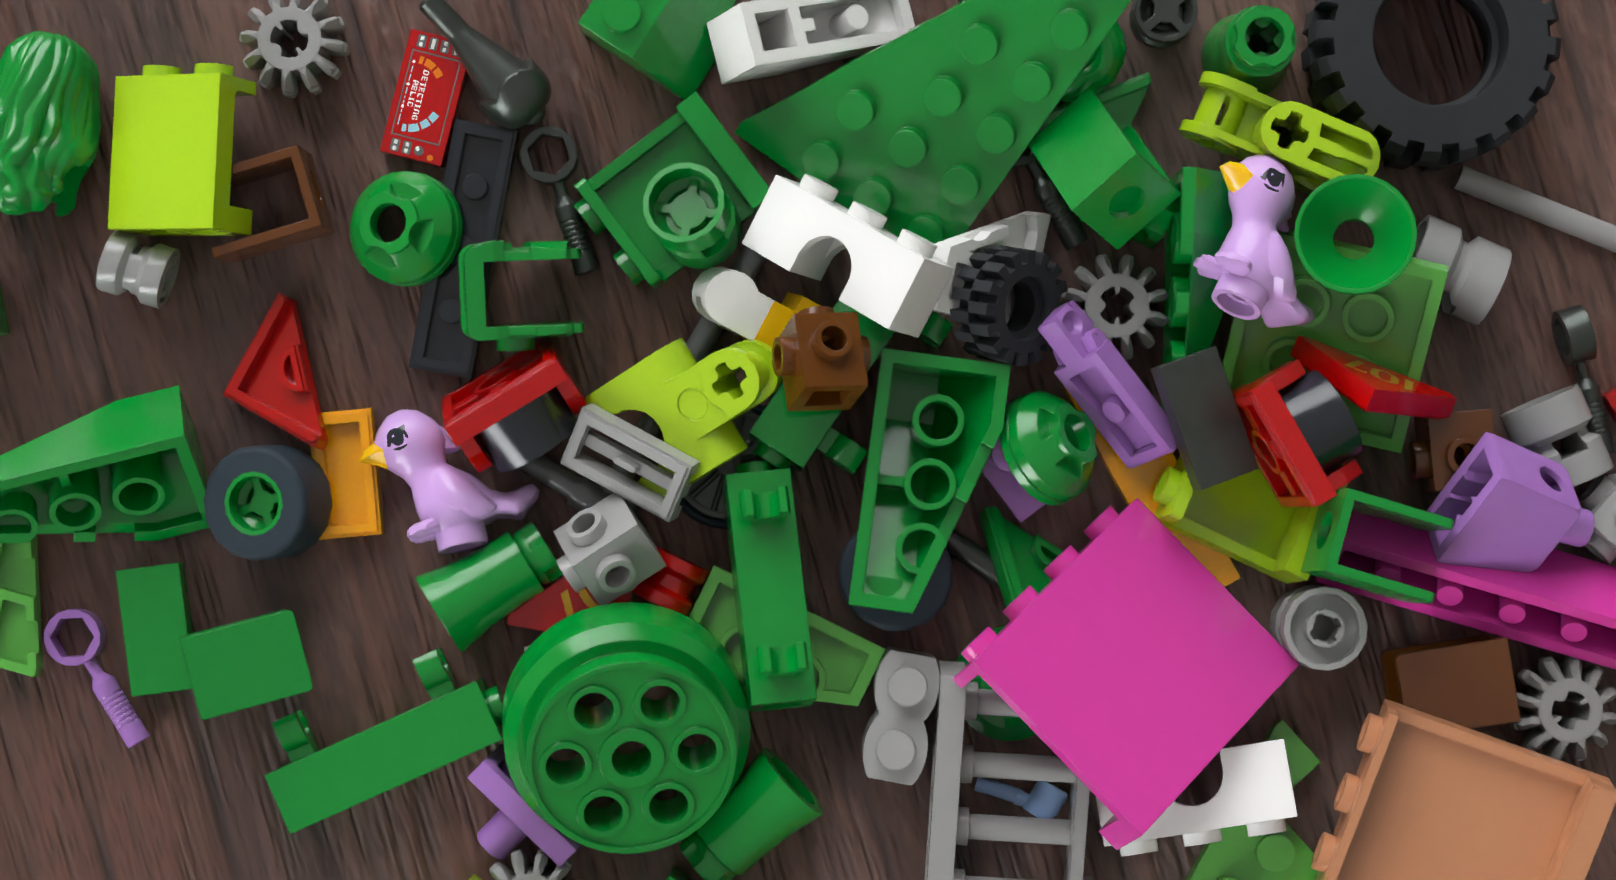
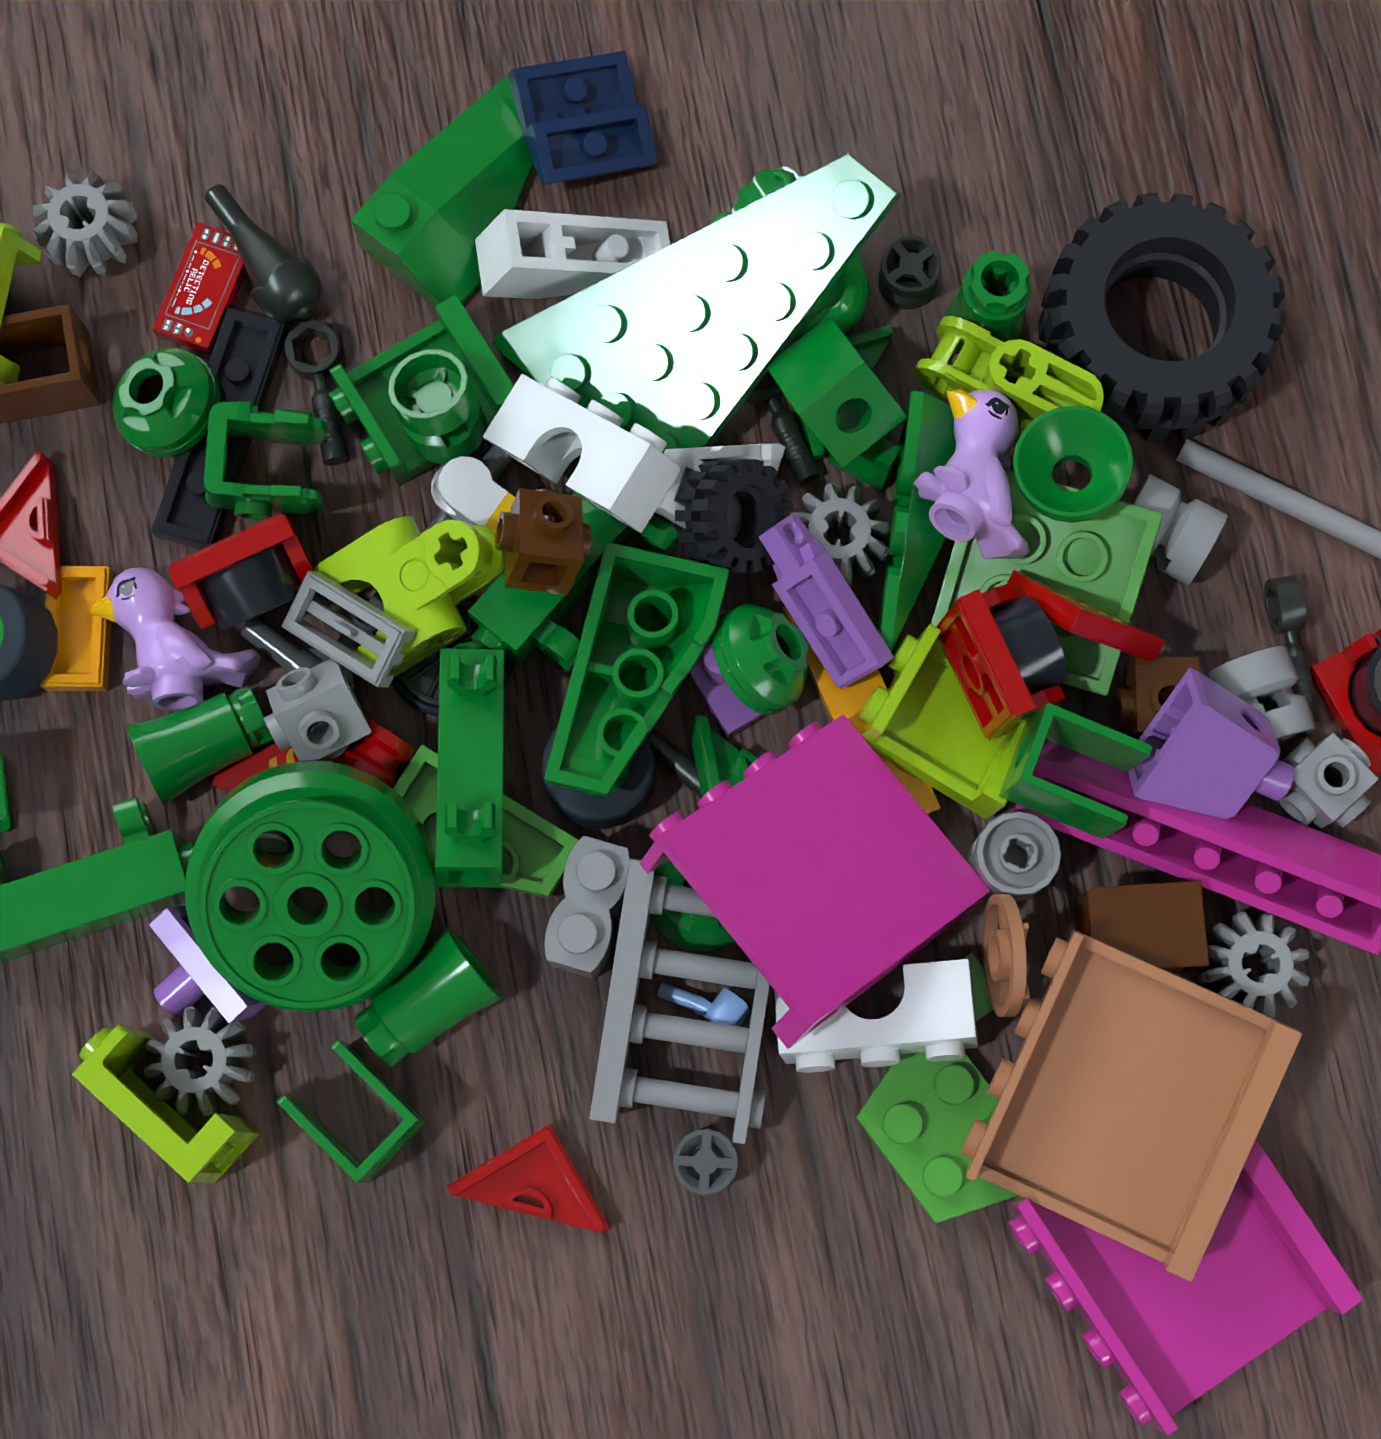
camera: 10 degrees right, 10 degrees down
(1204, 418) = (913, 635): pearl dark grey tile -> none
(1318, 730) = (1004, 955): none -> nougat wheel

